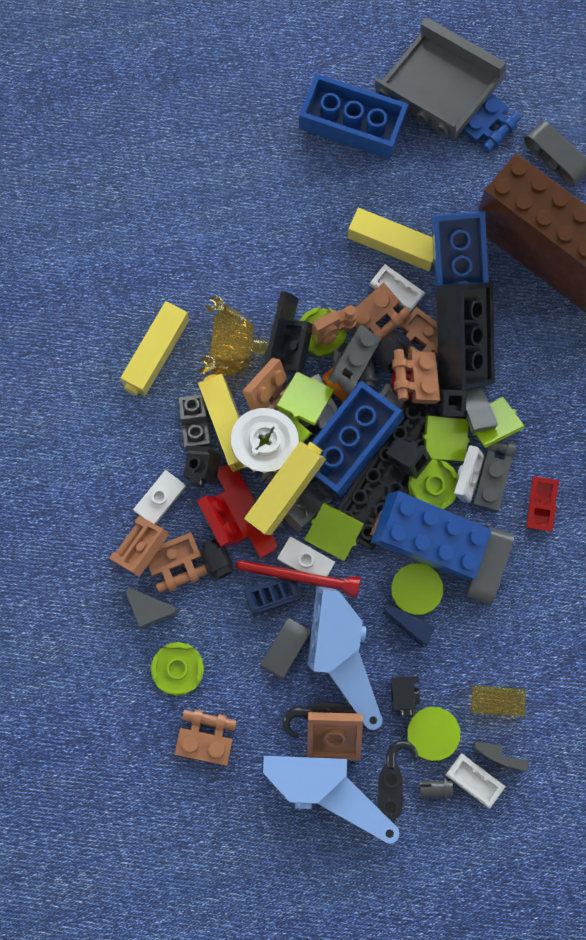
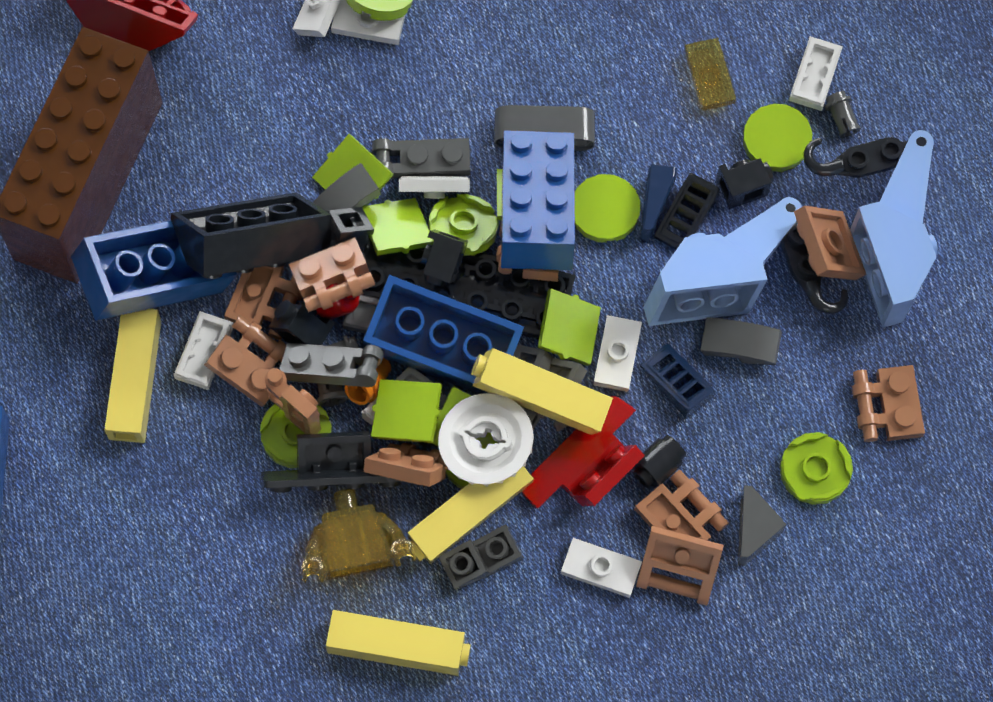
camera: 110 degrees left, 5 degrees down
(201, 465) = (533, 513): black brick -> none
(348, 585) = (634, 283): red piece -> none
(401, 667) = (701, 188): none -> black slope
(494, 754) = (775, 56): dark grey slope -> none
(542, 503) = (438, 93): red slope -> none

